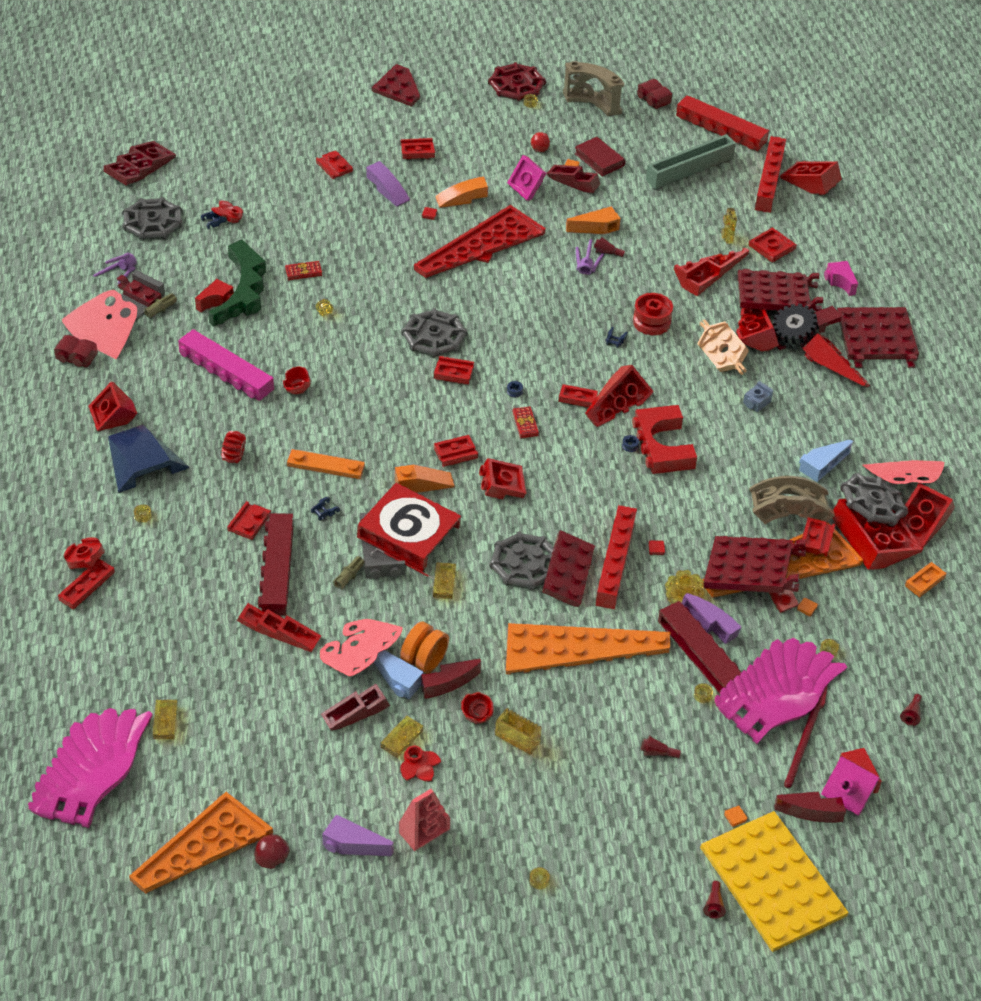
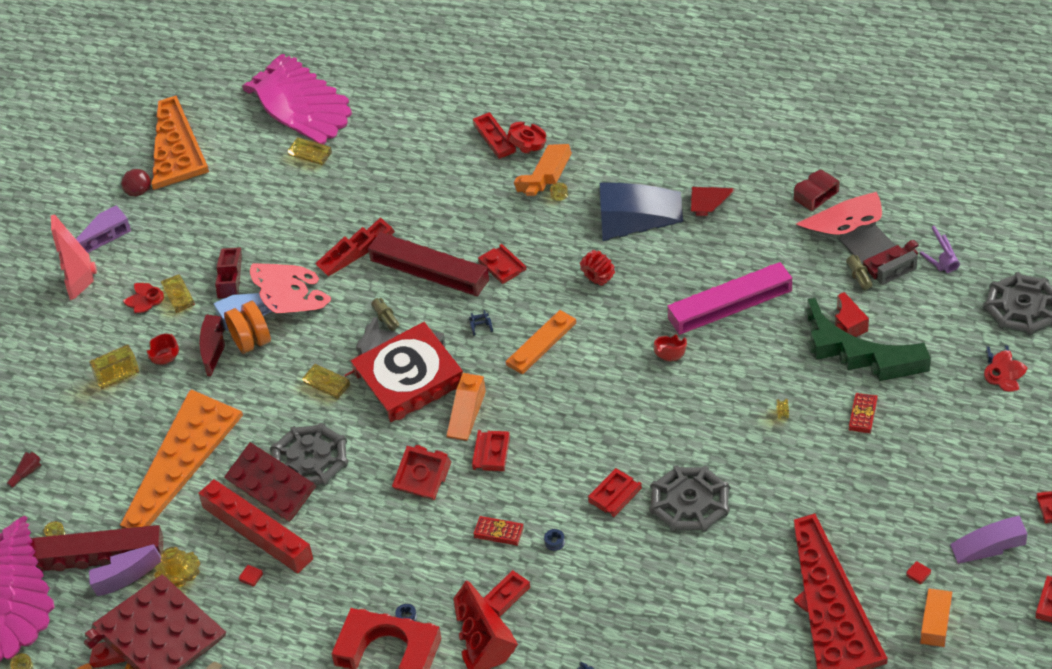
camera: 125 degrees right, 0 degrees up
(122, 524) = (547, 170): none -> orange piece

